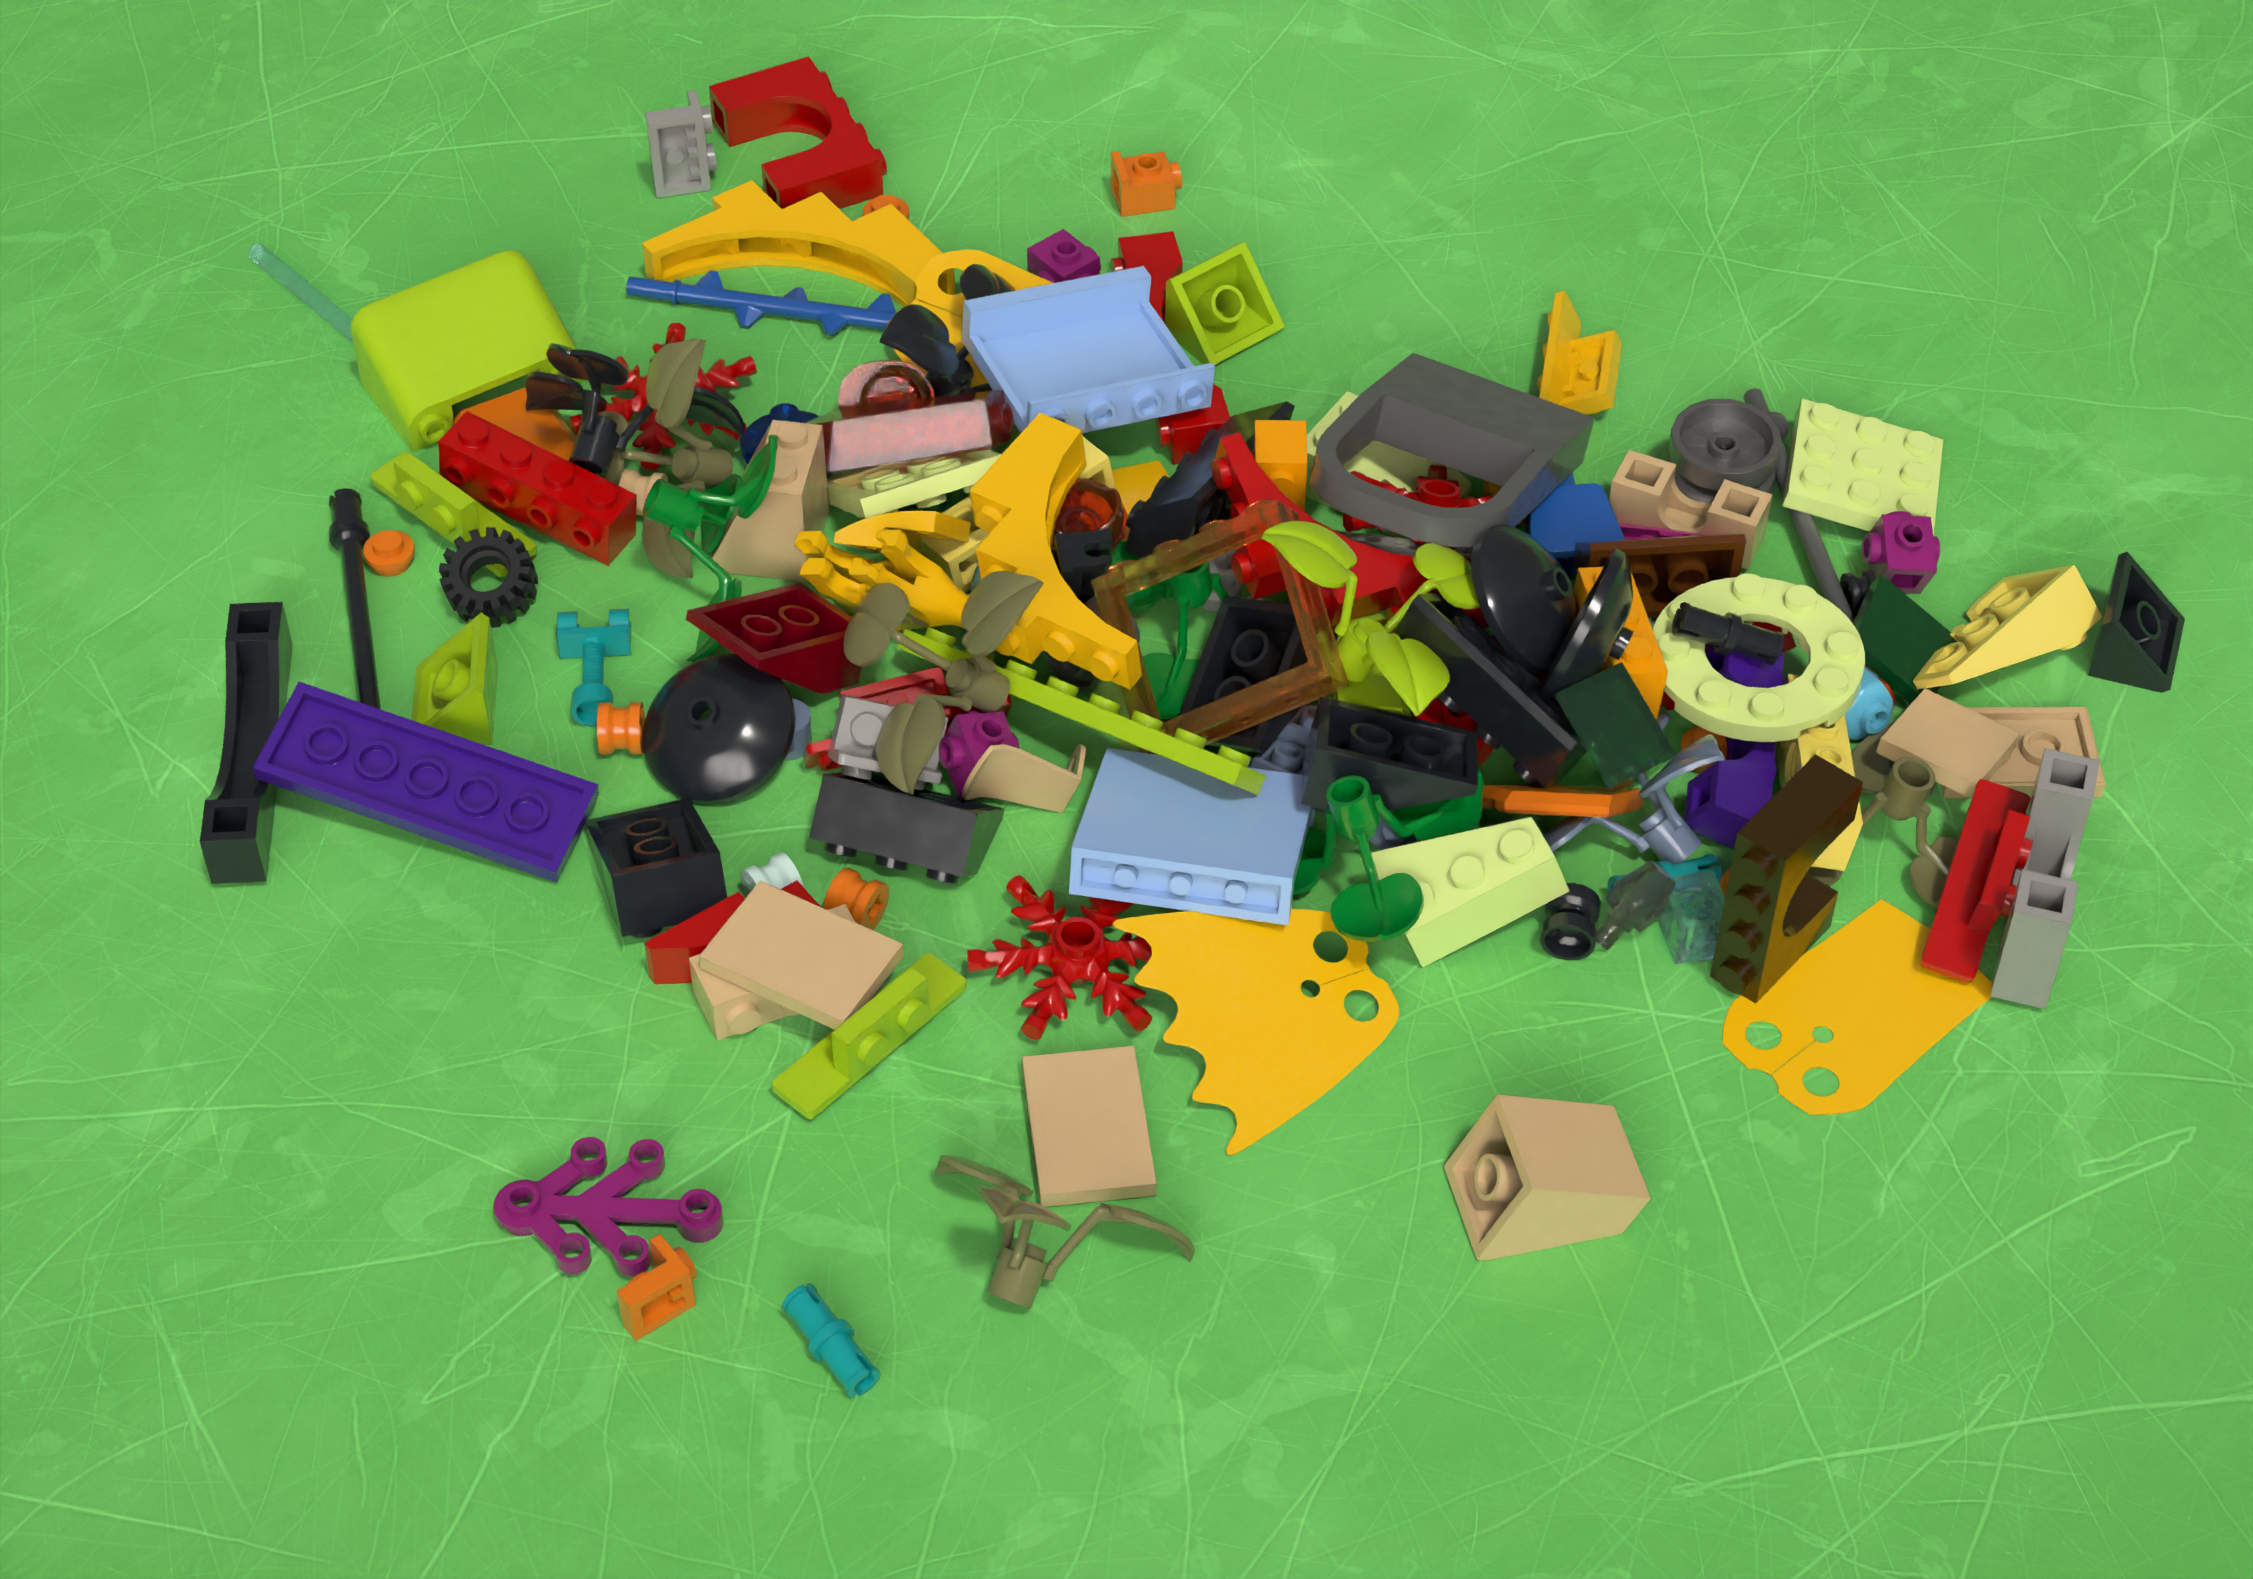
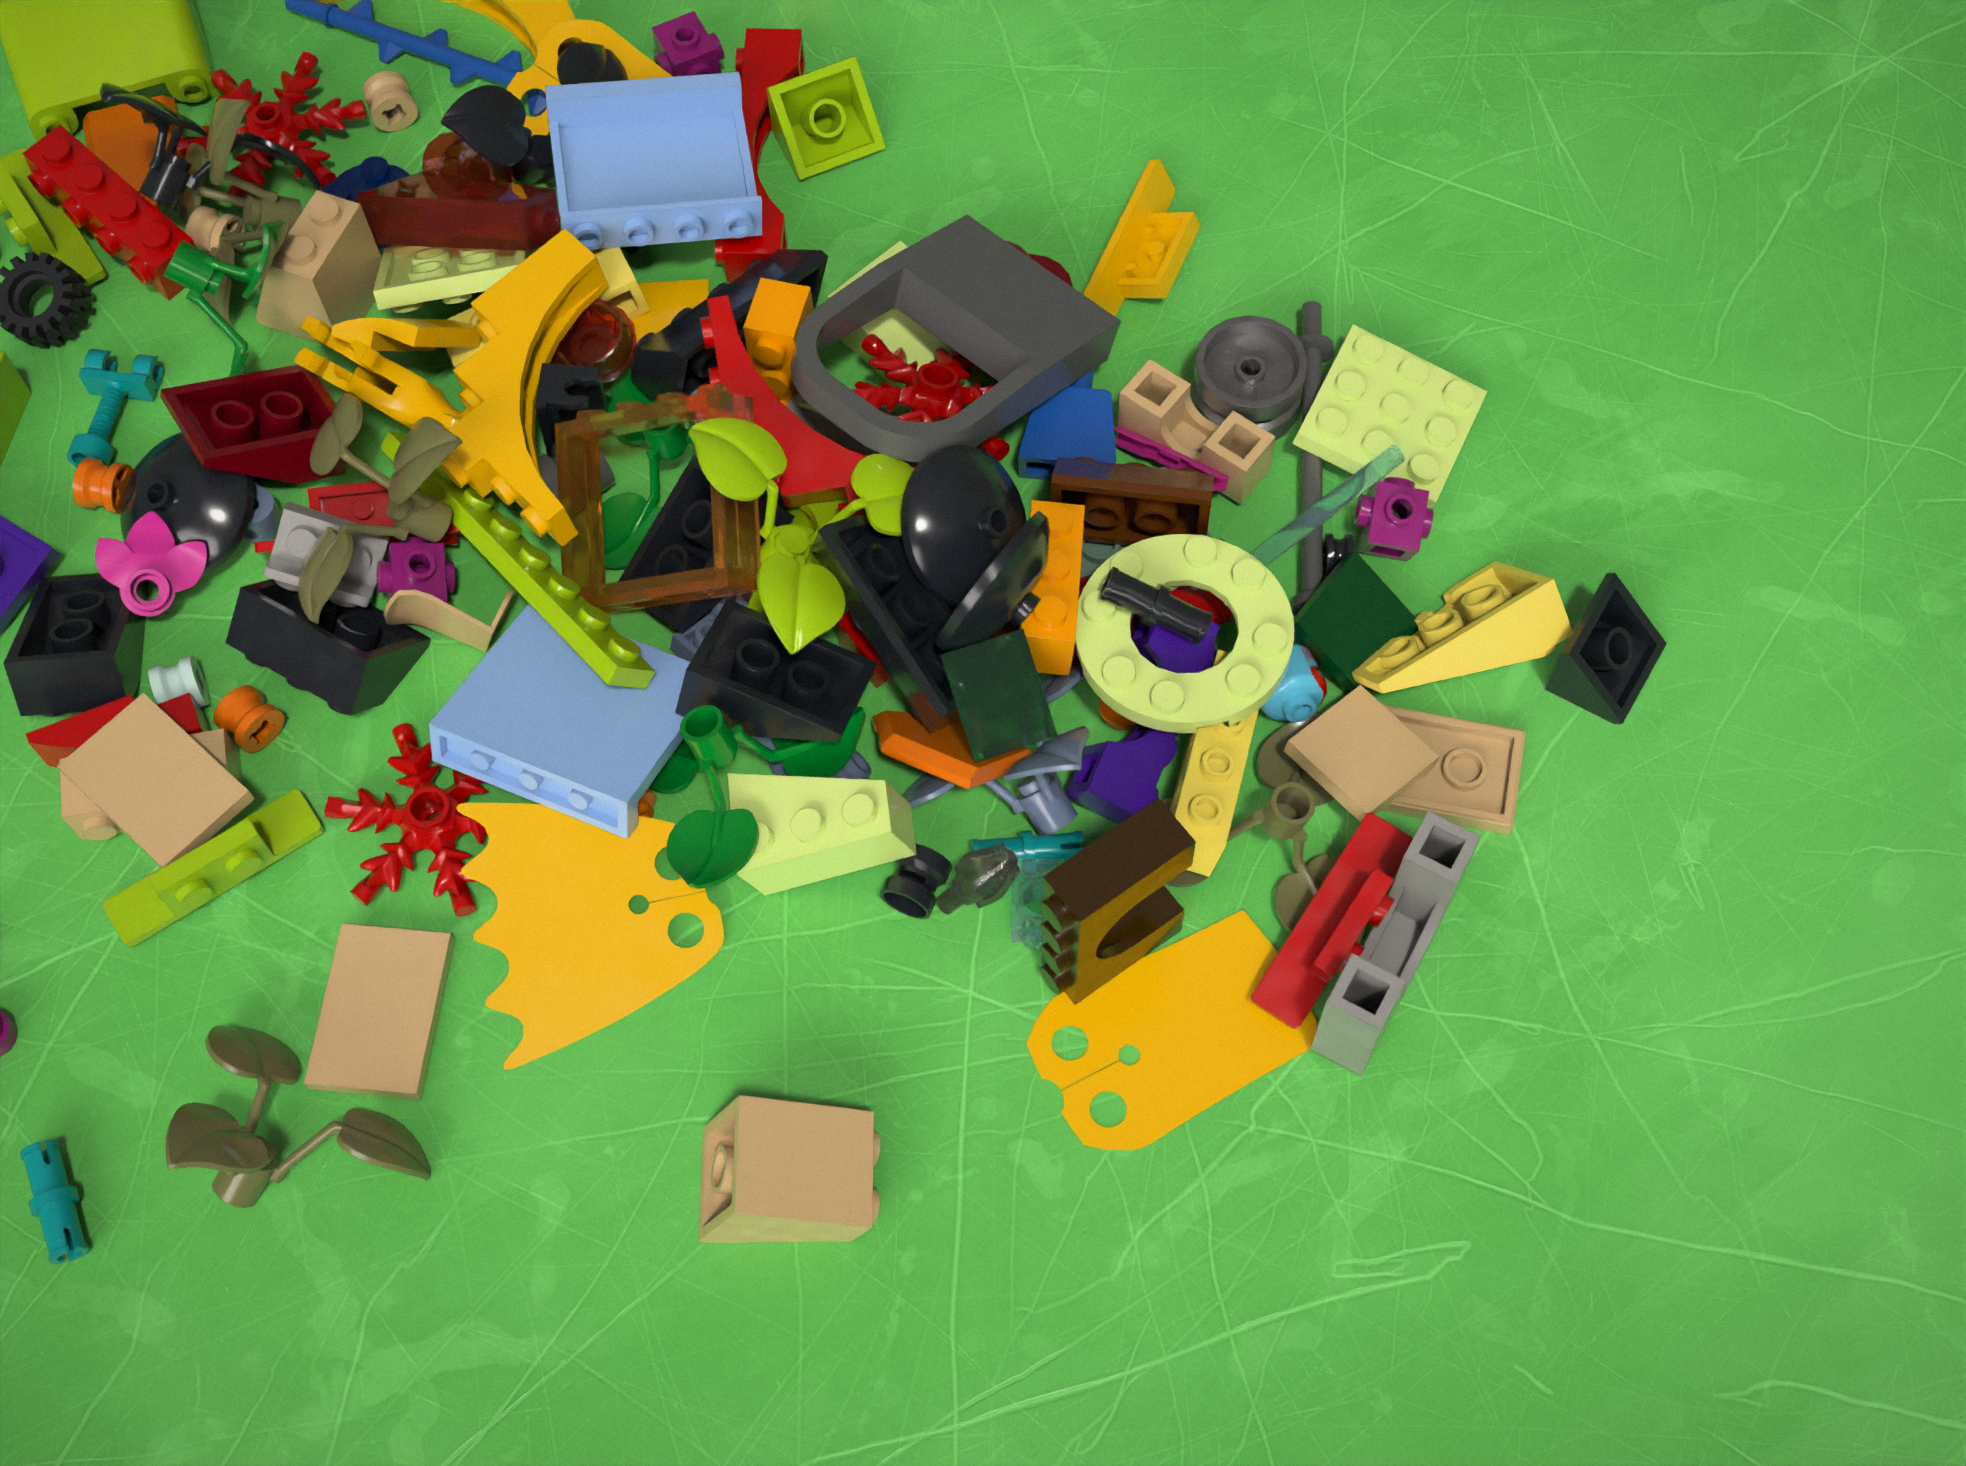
camera: 15 degrees right, 15 degrees up
(712, 772) = (152, 557): none -> dark pink plate
(775, 355) = (390, 101): none -> tan wheel
(1848, 537) = (1328, 505): none -> clear light blue bar

